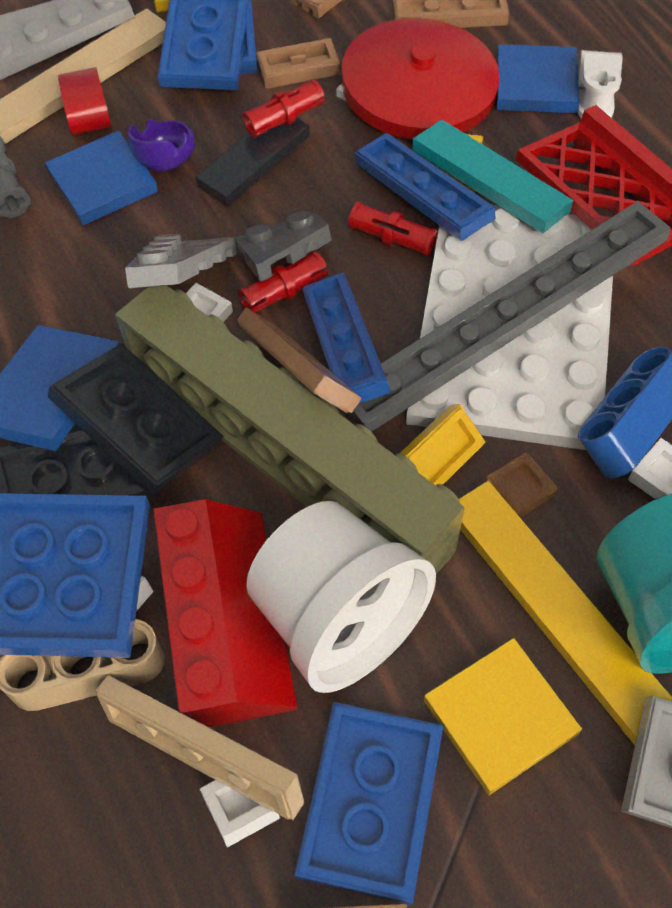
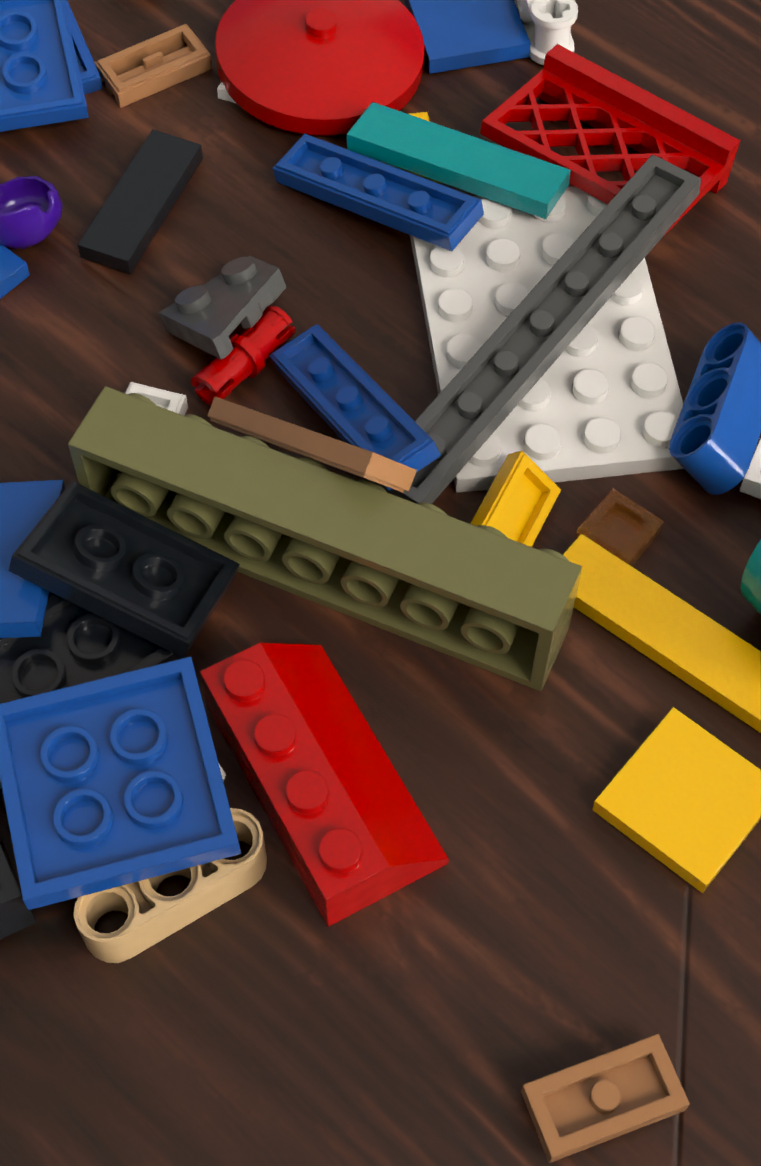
camera: 20 degrees left, 0 degrees up
(173, 261) = (108, 359): light grey wing -> none
(202, 748) = (360, 932): tan tile -> none
(235, 813) = (426, 986): white plate -> none
(283, 108) = (164, 130): red pin -> none
(338, 593) = (462, 706): white piece -> none
(367, 219) = (317, 250): red pin -> none
(370, 804) = (574, 940): blue tile -> none

